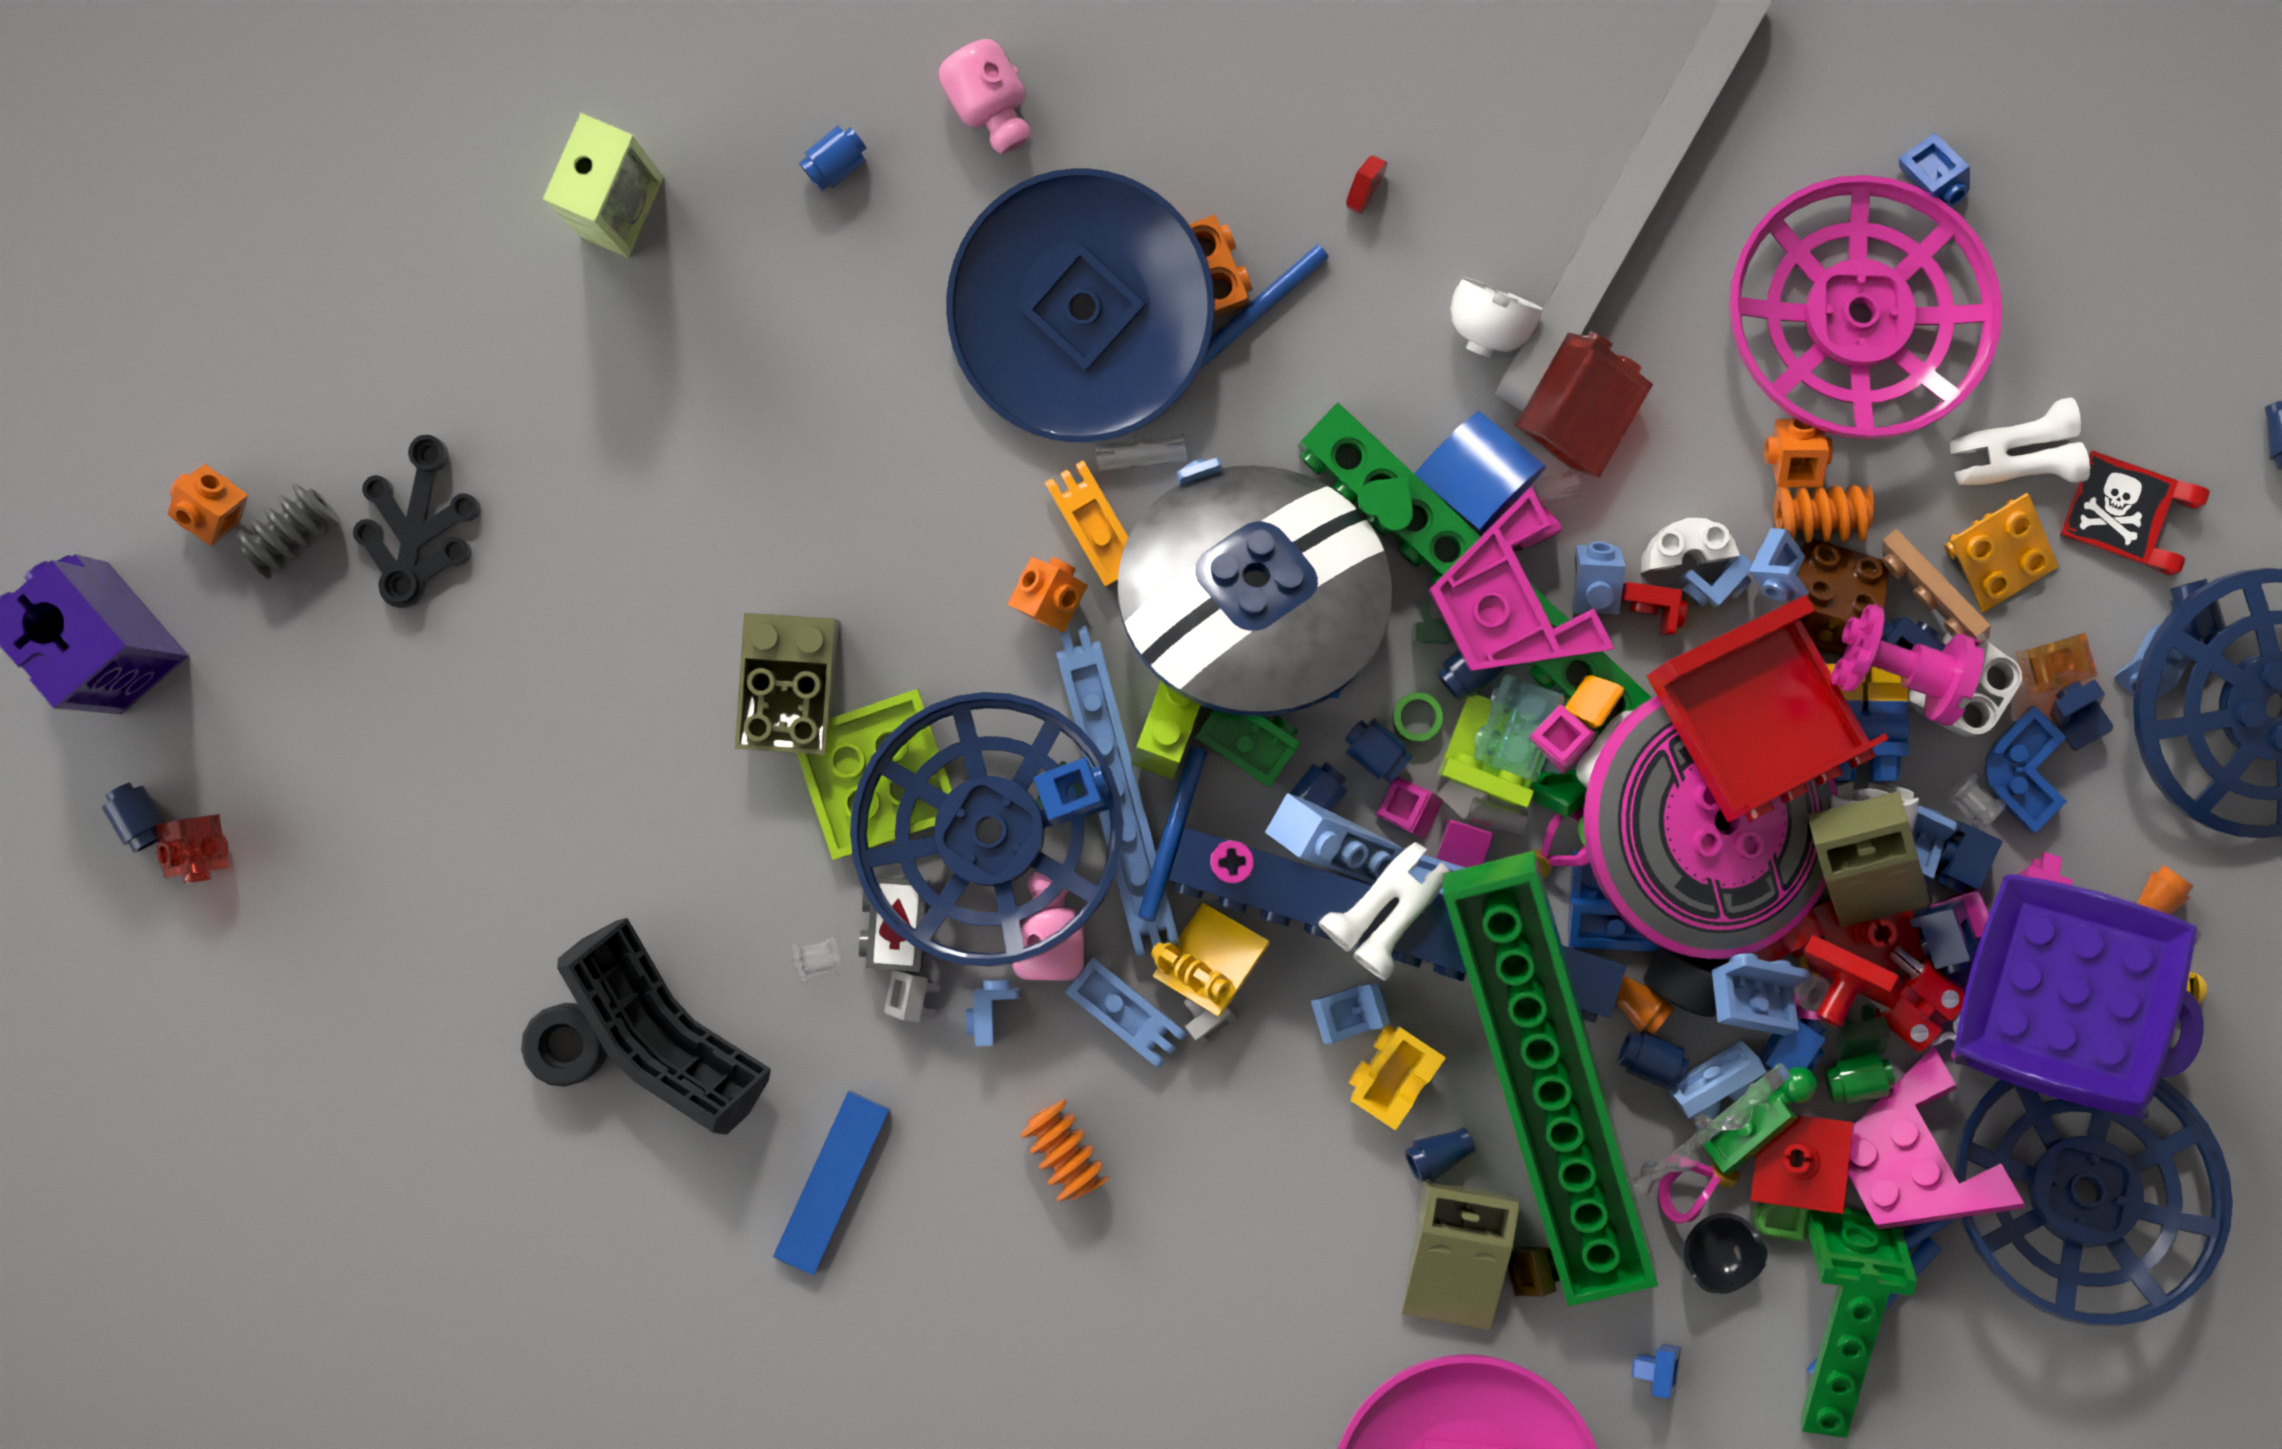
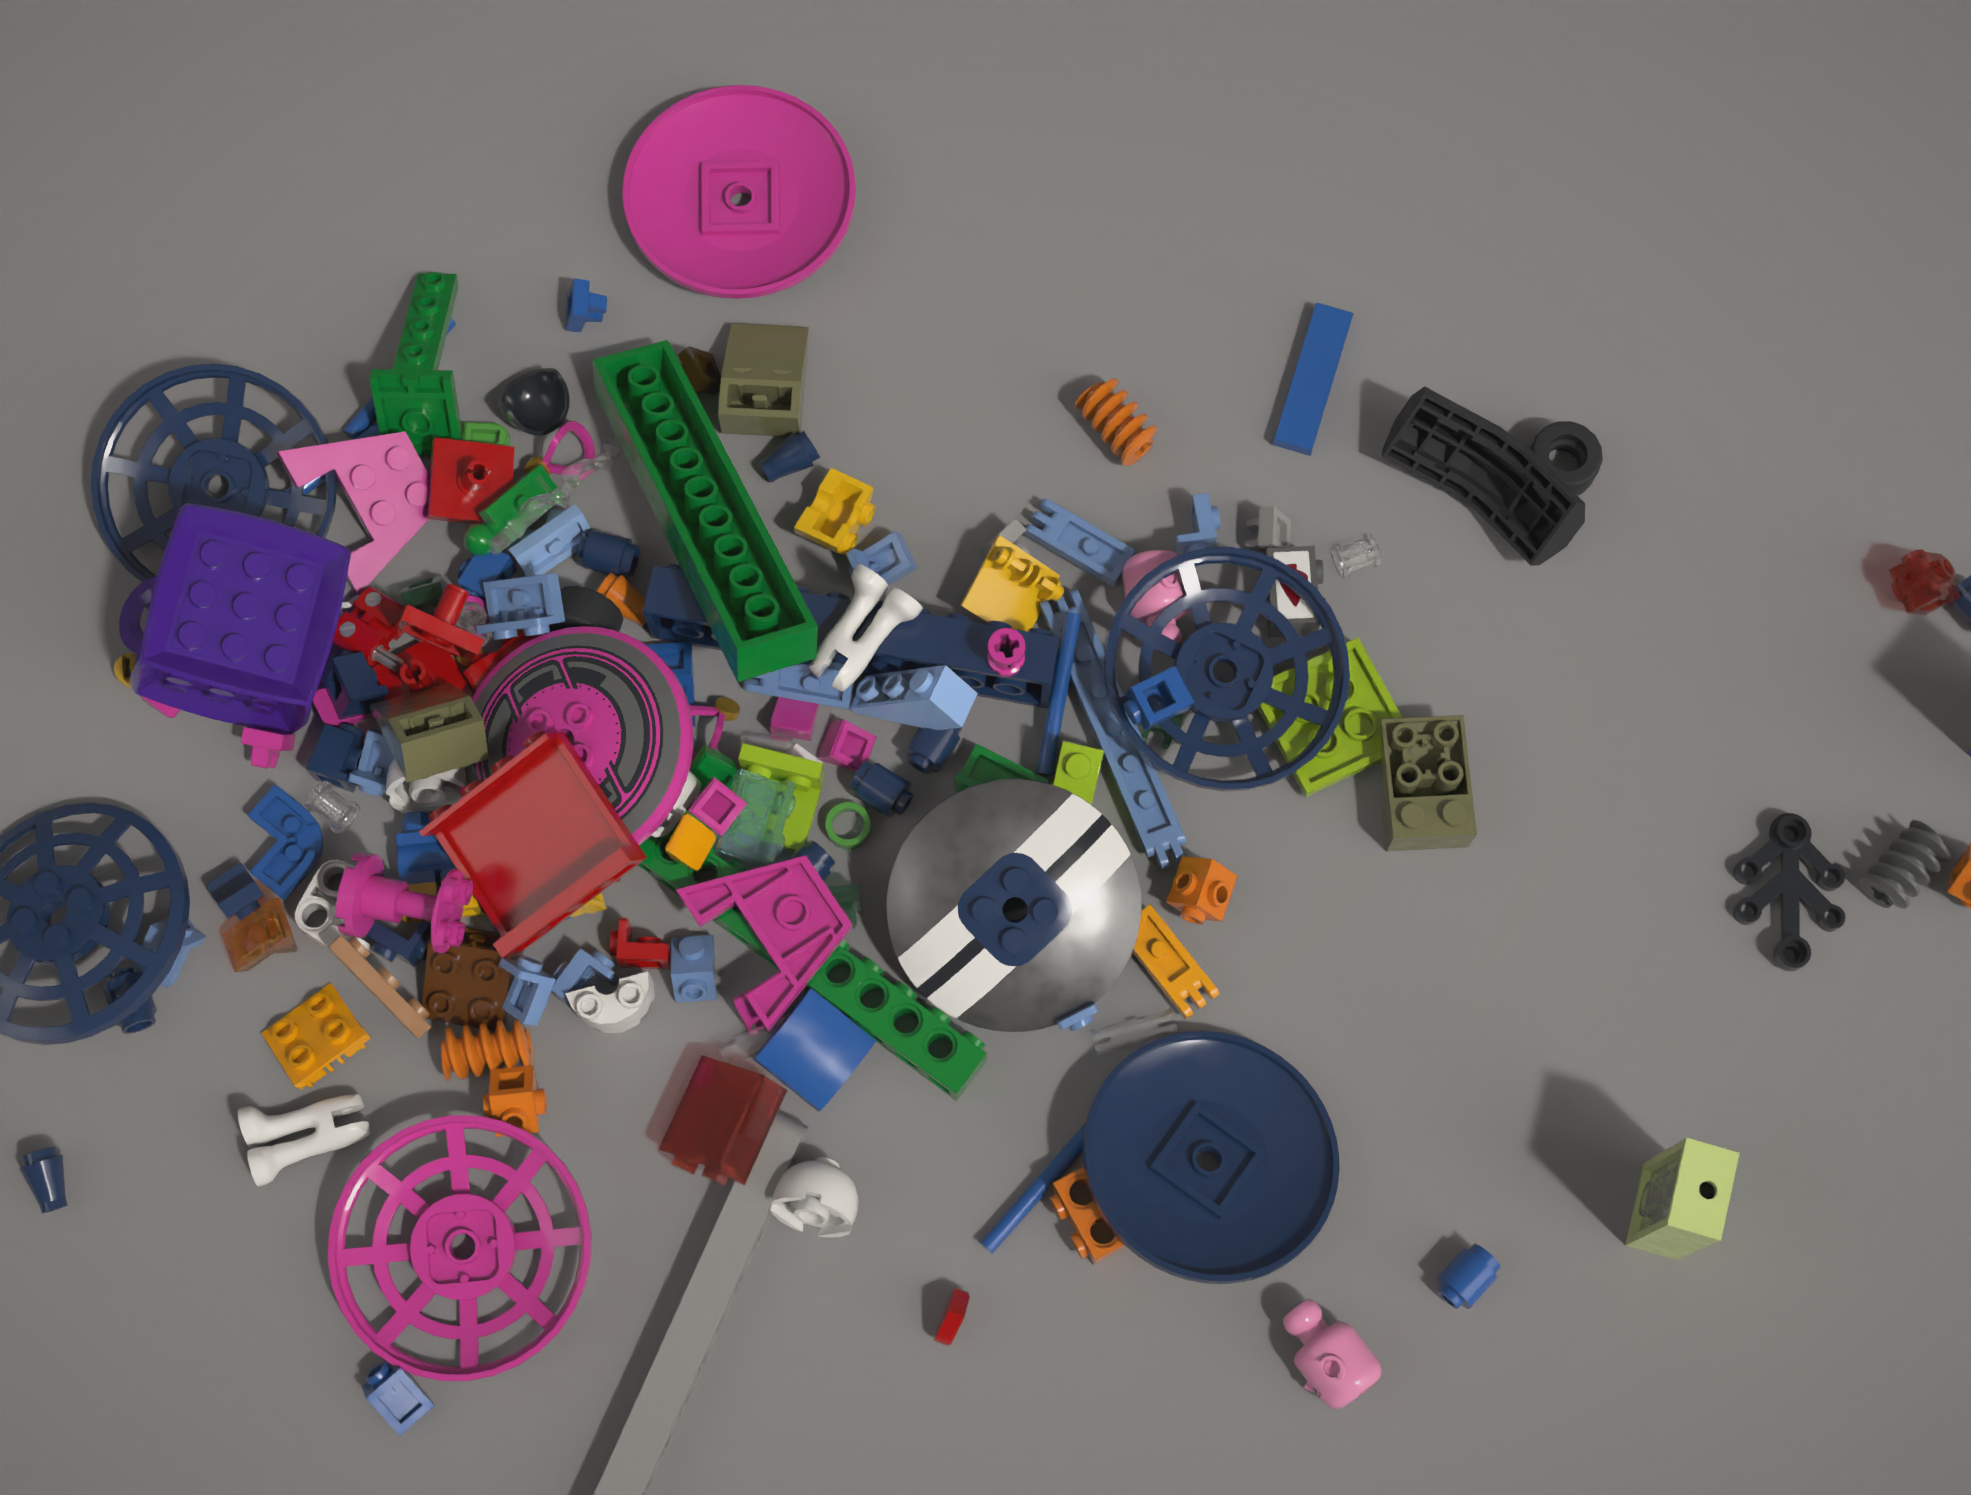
camera: 175 degrees right, 15 degrees down
(1387, 501) = (898, 1003): green tile -> none
(1859, 1079) = (424, 558): green brick -> none
(2125, 509) = (198, 1092): flag -> none
(2165, 891) = (157, 744): orange cone -> none

